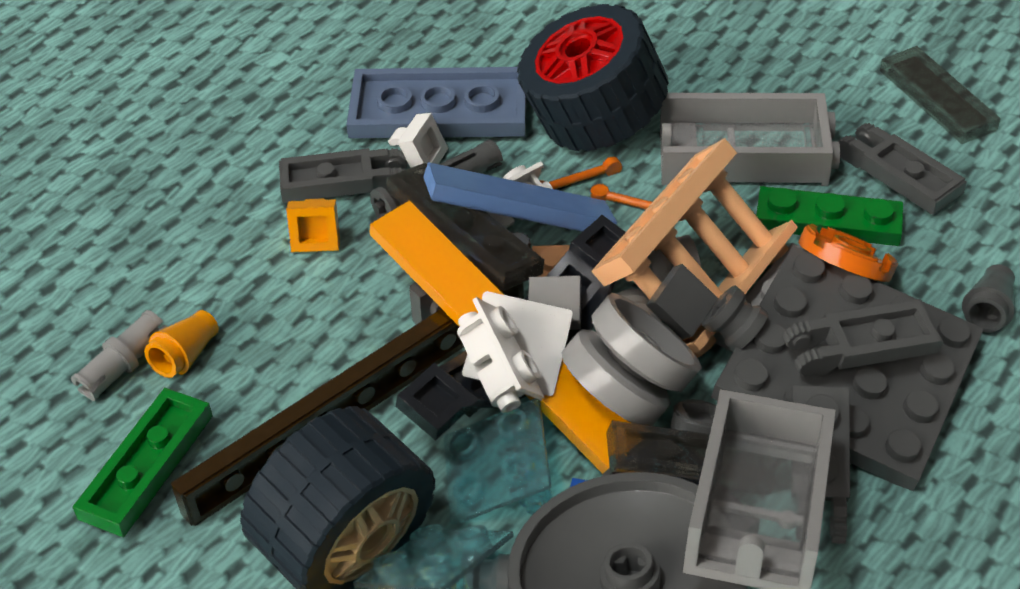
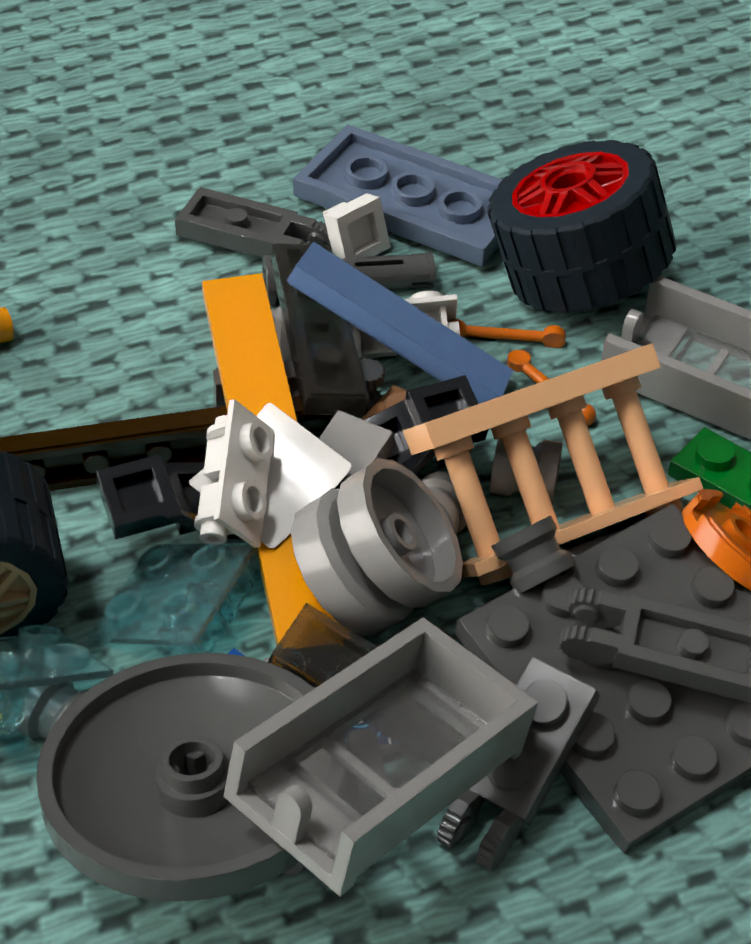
camera: 25 degrees right, 0 degrees up
(313, 225) = (179, 267): light orange tile -> none
(682, 301) = (486, 509): dark grey tile -> none

